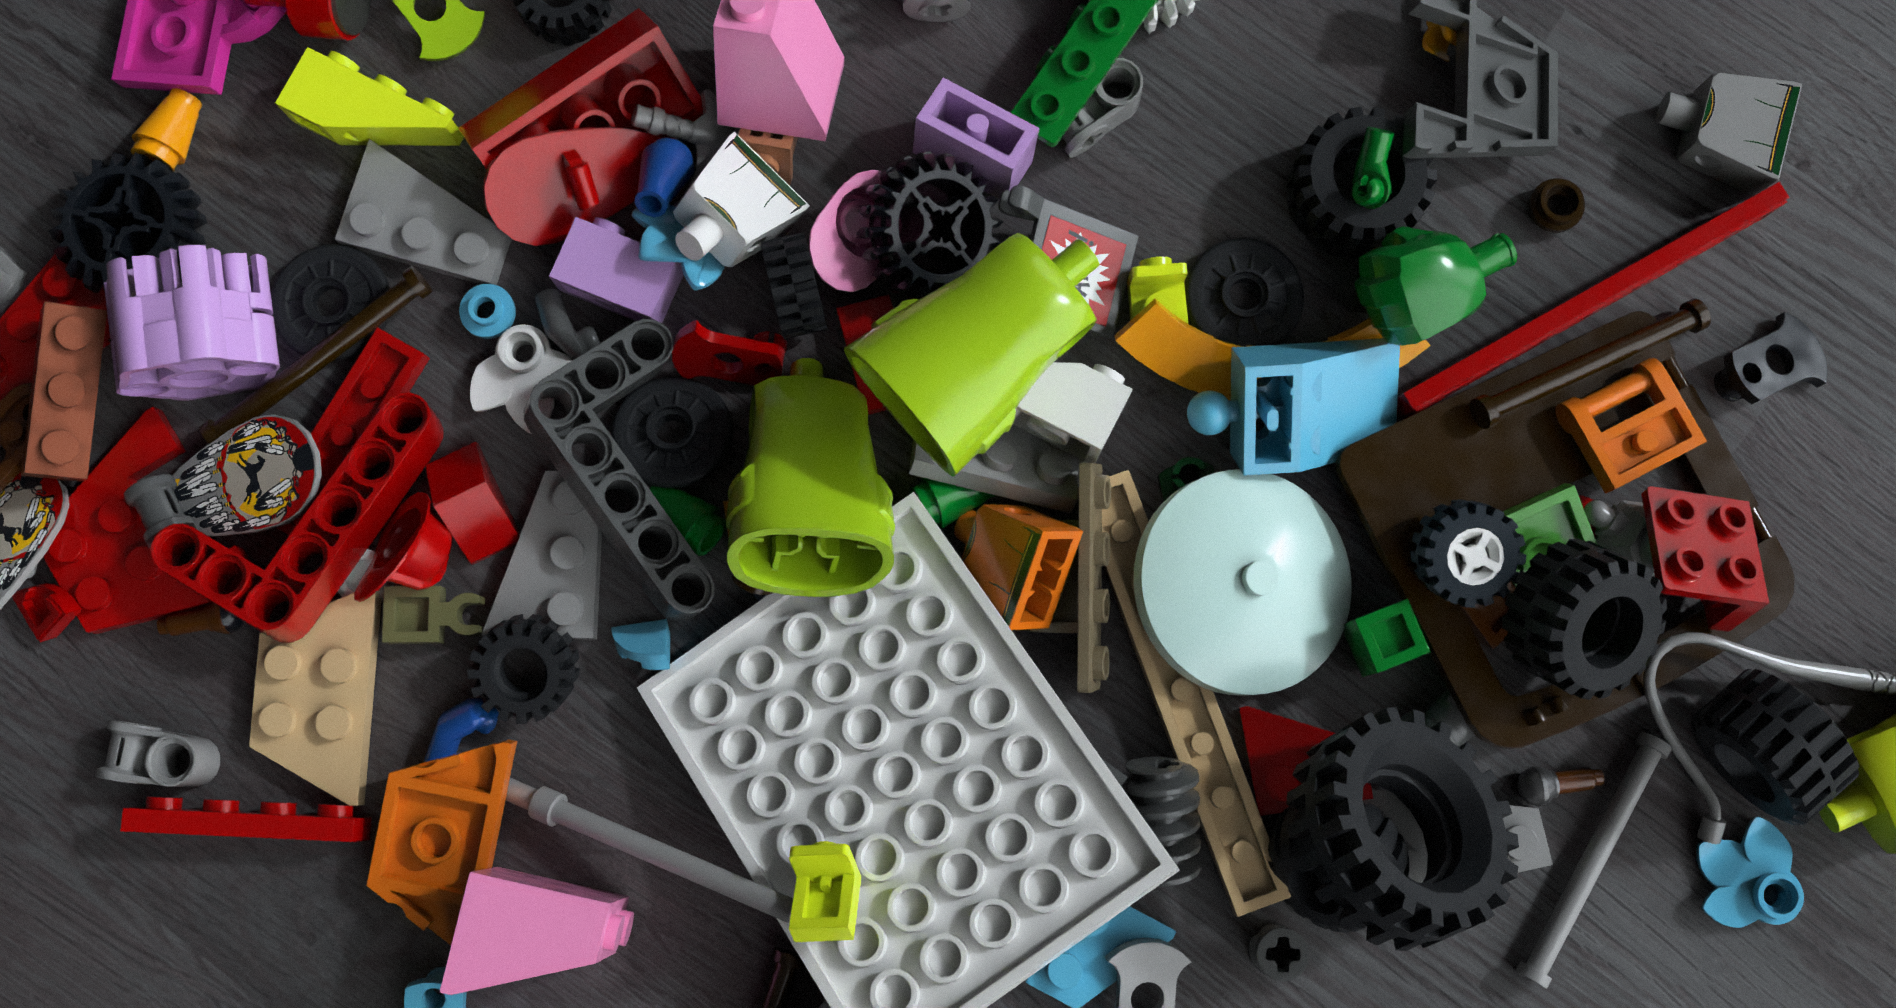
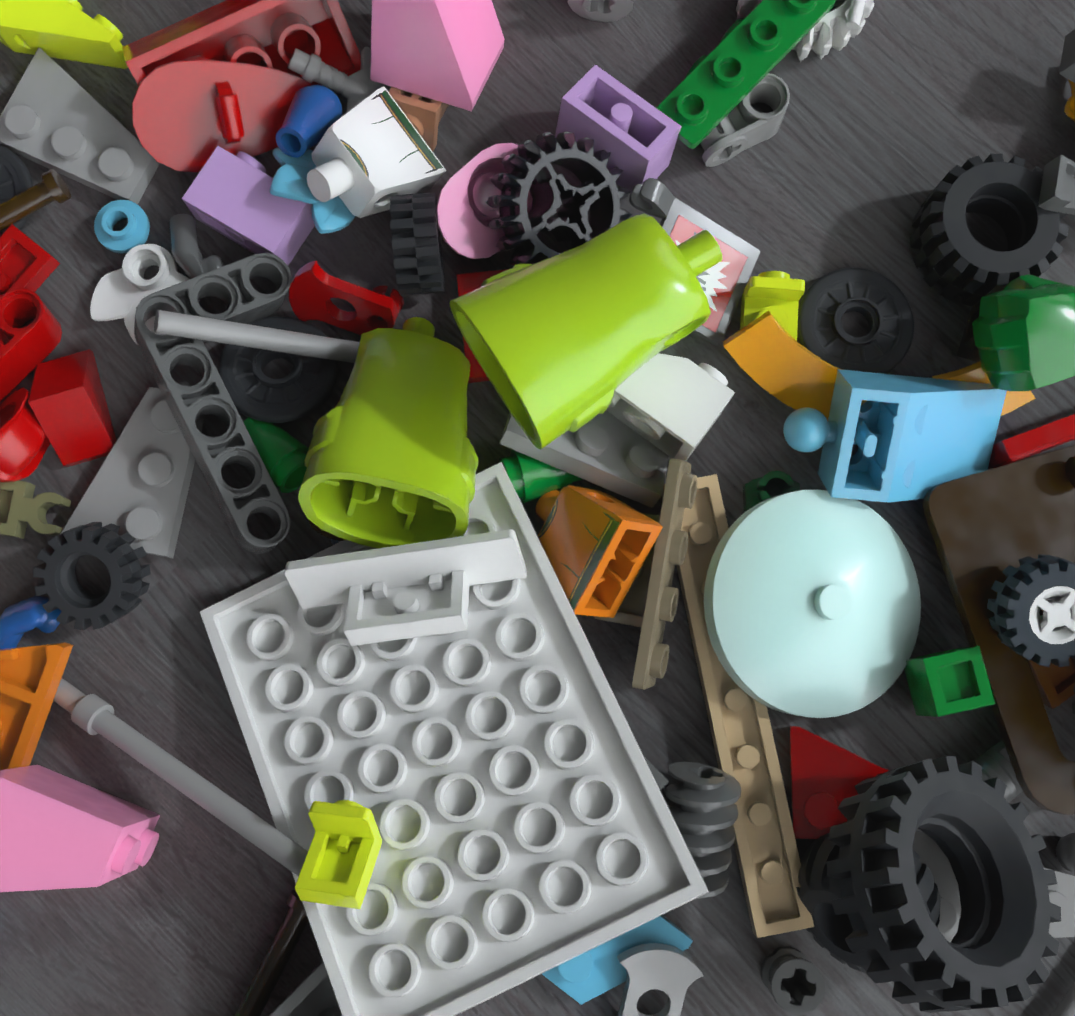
camera: 10 degrees right, 0 degrees up
(644, 643) = (216, 570): medium azure tile -> none
(650, 405) = (254, 336): none -> light grey bar
(842, 629) = (408, 586): none -> white bracket
(1371, 176) = (1003, 221): green arm -> none

